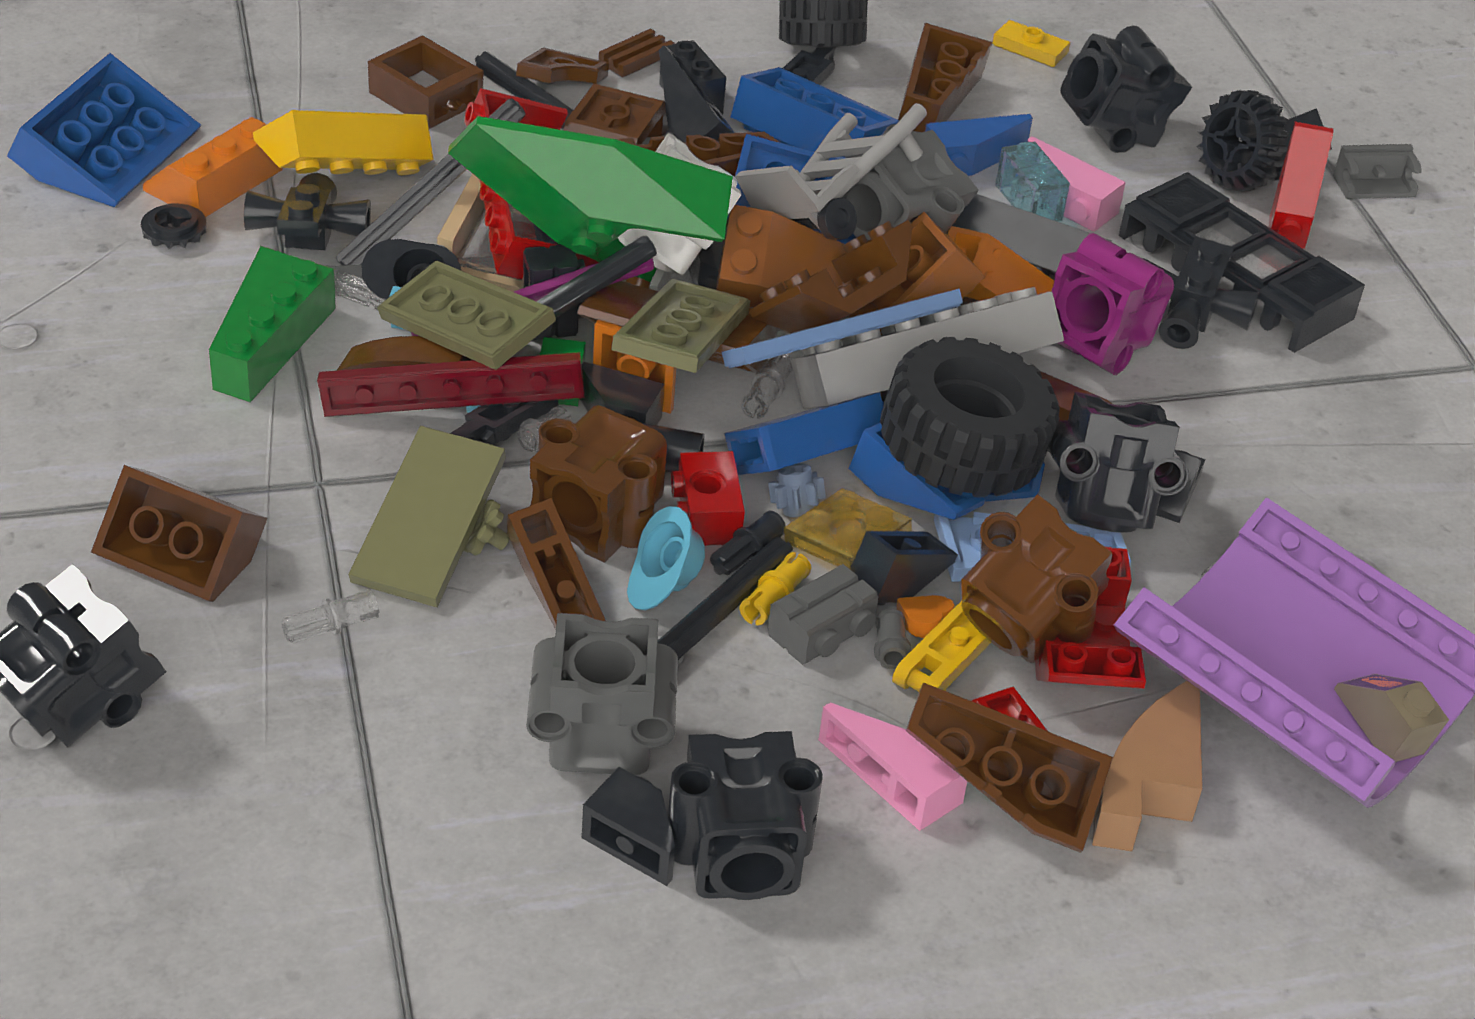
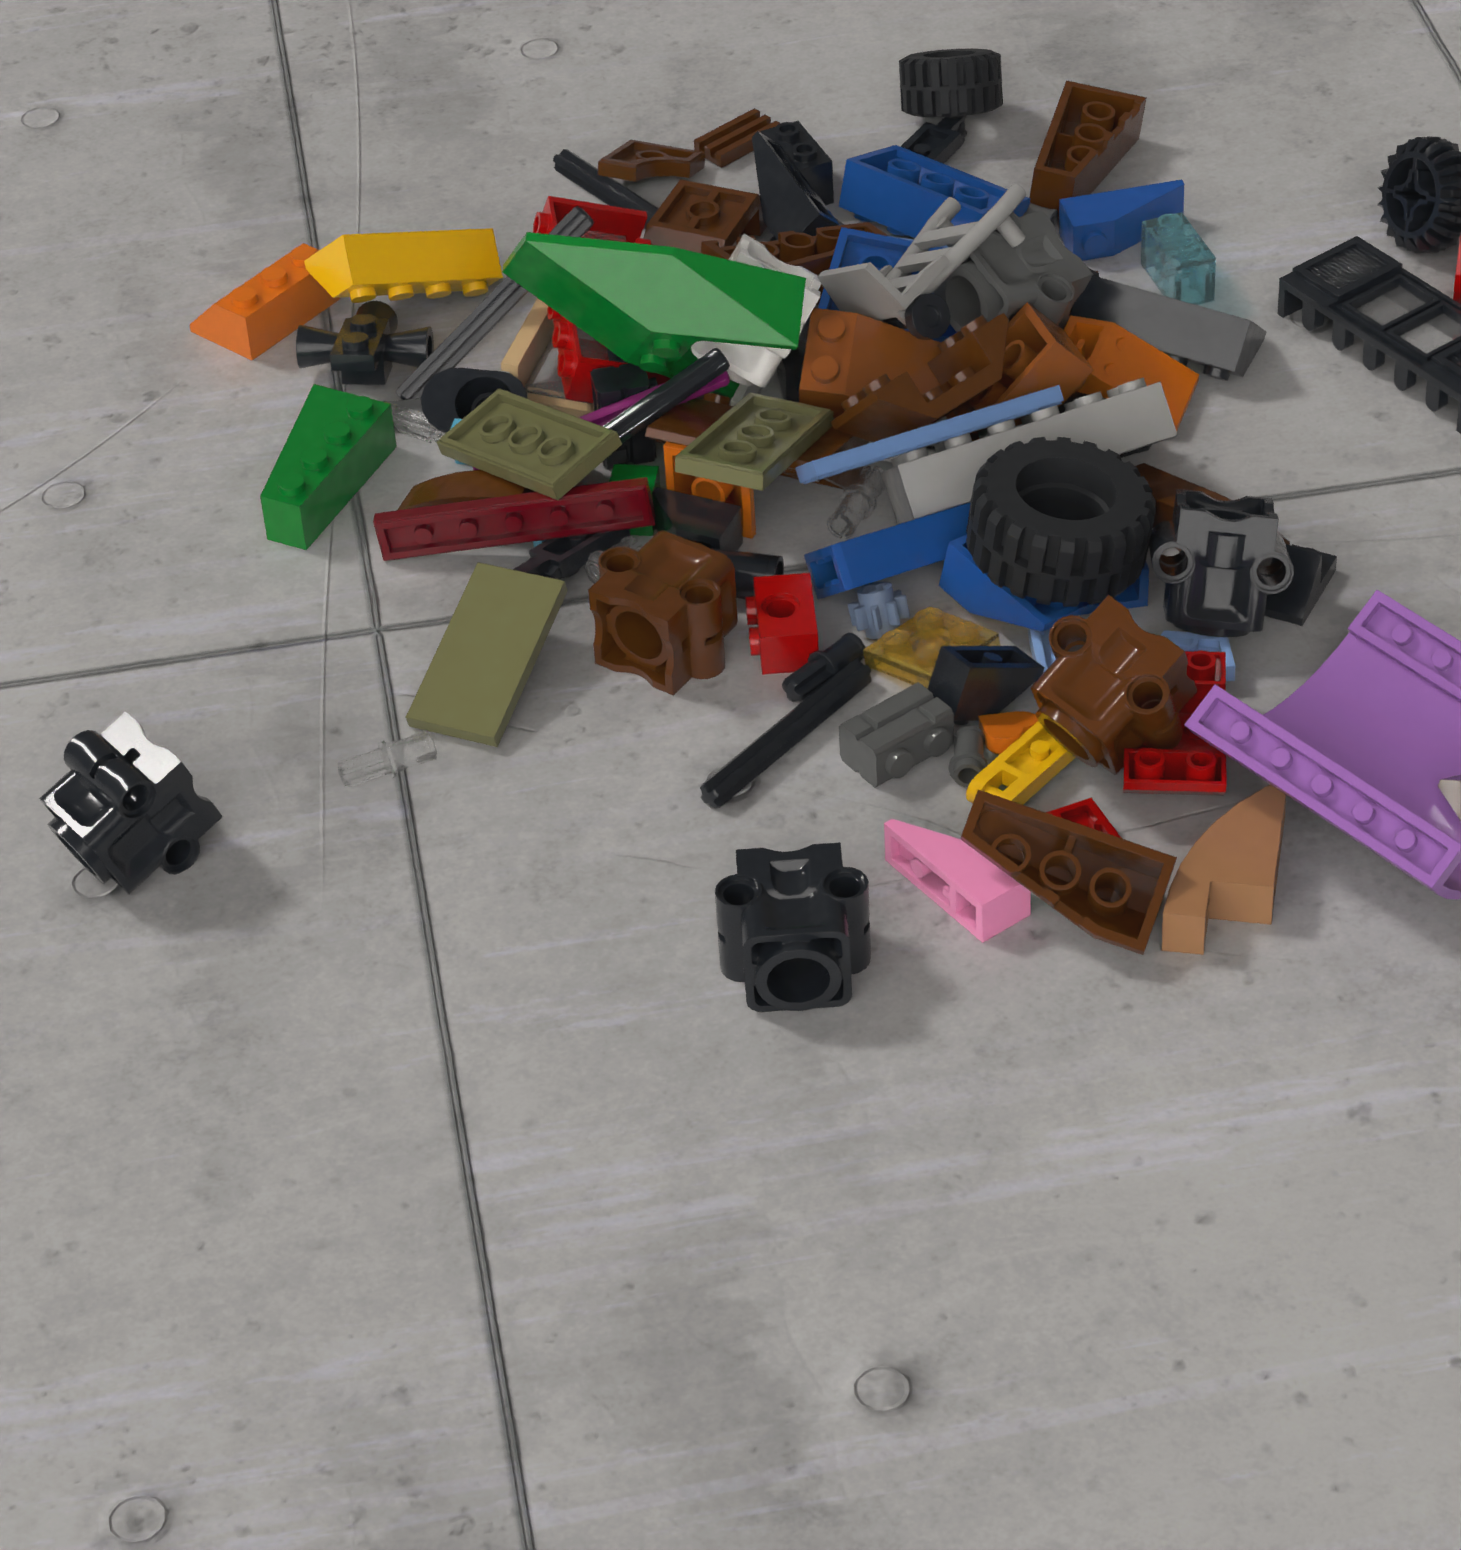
camera: 10 degrees right, 0 degrees up
(102, 134) = (146, 272): blue slope -> none
(177, 533) = (232, 684): reddish brown slope -> none
(187, 220) = (237, 360): black gear -> none
(391, 82) = (493, 158): reddish brown window -> none
(487, 530) = (548, 667): olive plant -> none
(551, 562) = (616, 702): reddish brown slope -> none
(602, 694) = (655, 818): dark grey piece -> none
(631, 824) = (681, 942): black slope -> none
(666, 558) = (735, 686): medium azure piece -> none
(774, 586) = (846, 706): yellow pin -> none
(1031, 43) = (1201, 93): yellow plate -> none
(1092, 194) = (1244, 266): bright pink slope -> none
(1108, 302) = (1237, 391): magenta piece -> none
(1124, 88) = (1293, 143): black piece -> none
(1199, 295) = (1348, 374): black brick -> none

